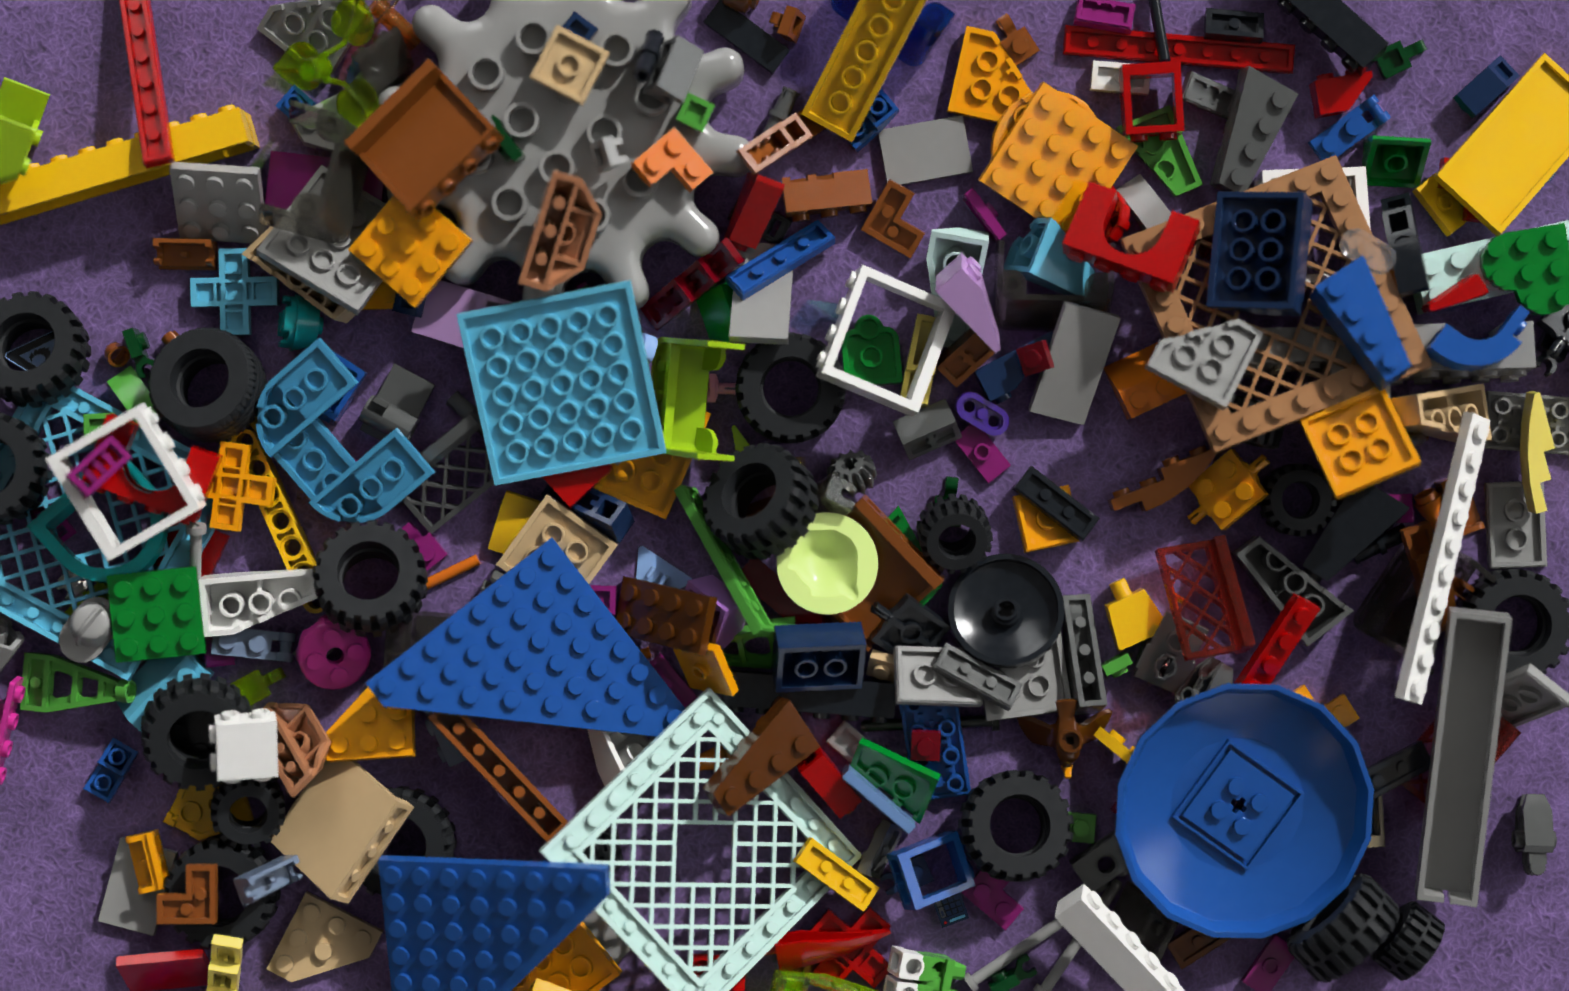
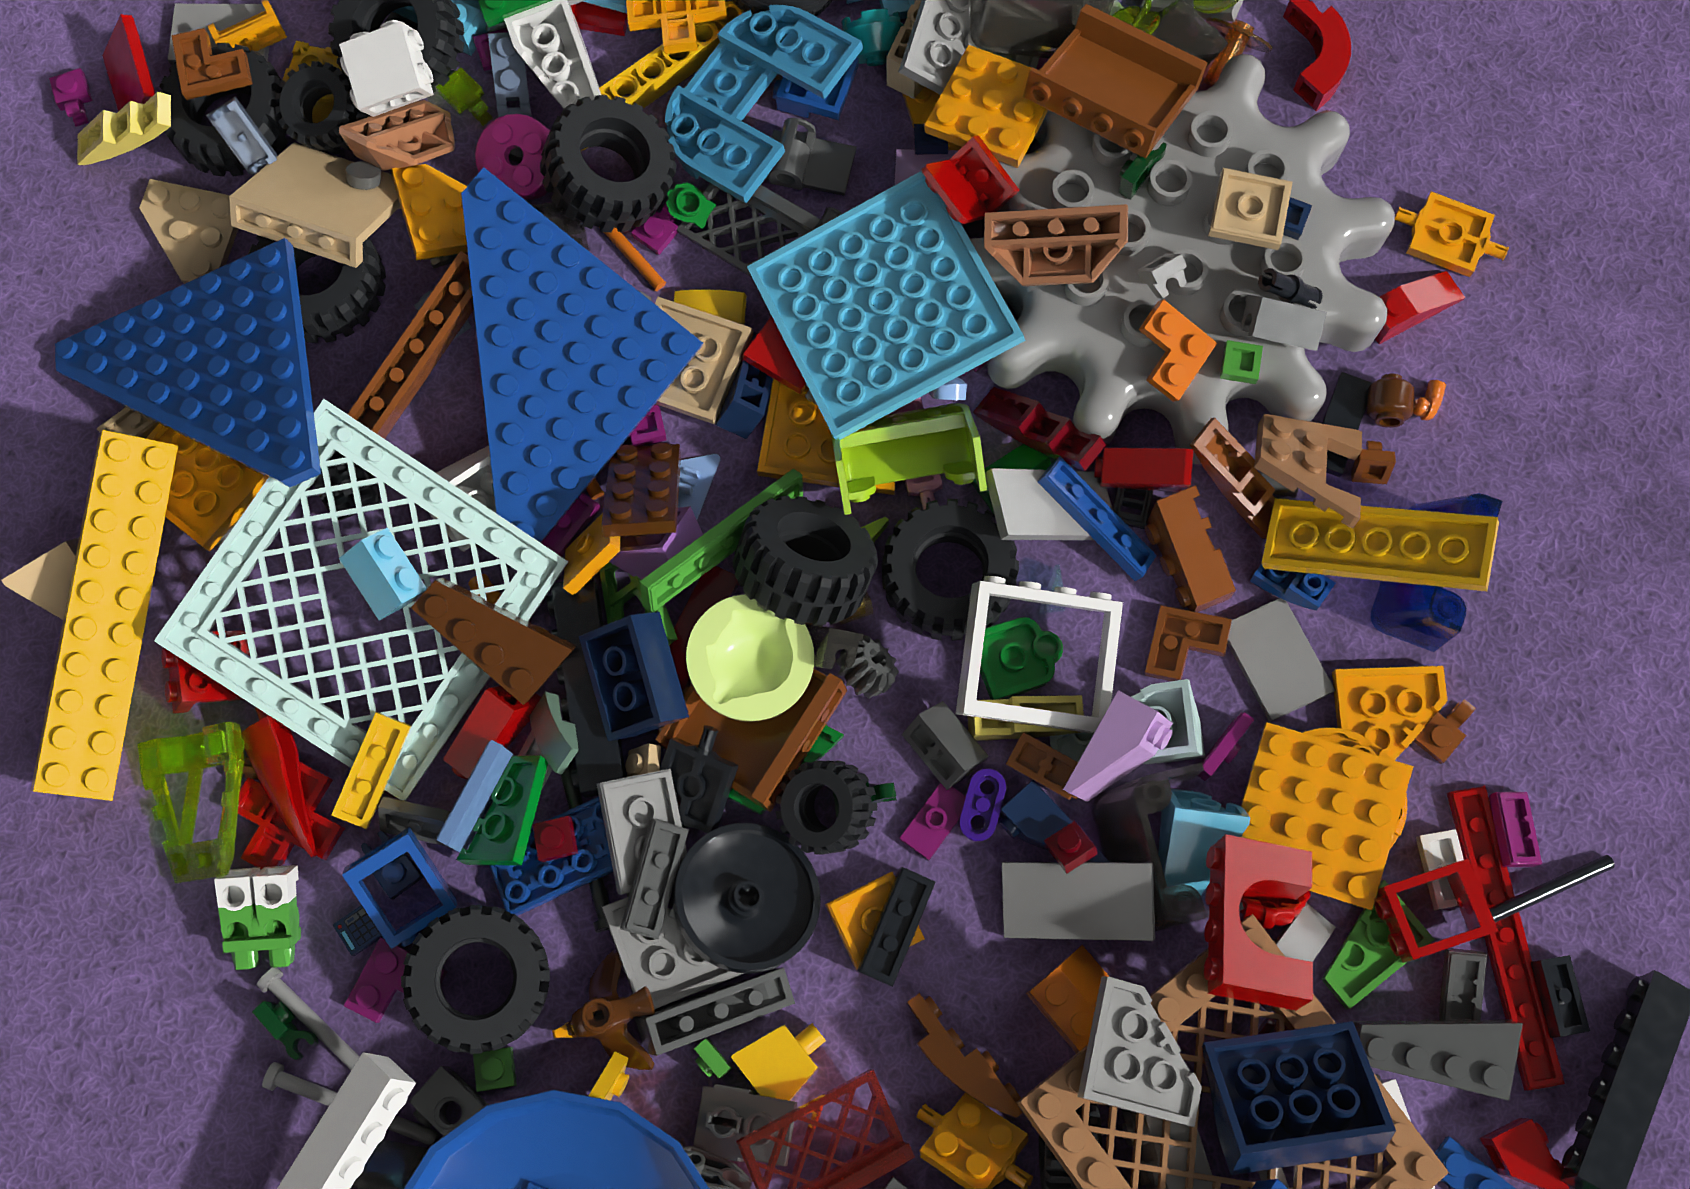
camera: 75 degrees right, 15 degrees down
(324, 786) = (363, 175): none -> dark grey tile
(418, 518) = (689, 204): none -> green animal
(481, 286) = (970, 182): none -> red bracket
(694, 832) = (383, 573): none -> medium azure brick
(776, 91) = (1296, 457): none -> medium nougat wing
(846, 729) = (554, 737): none -> sand green slope

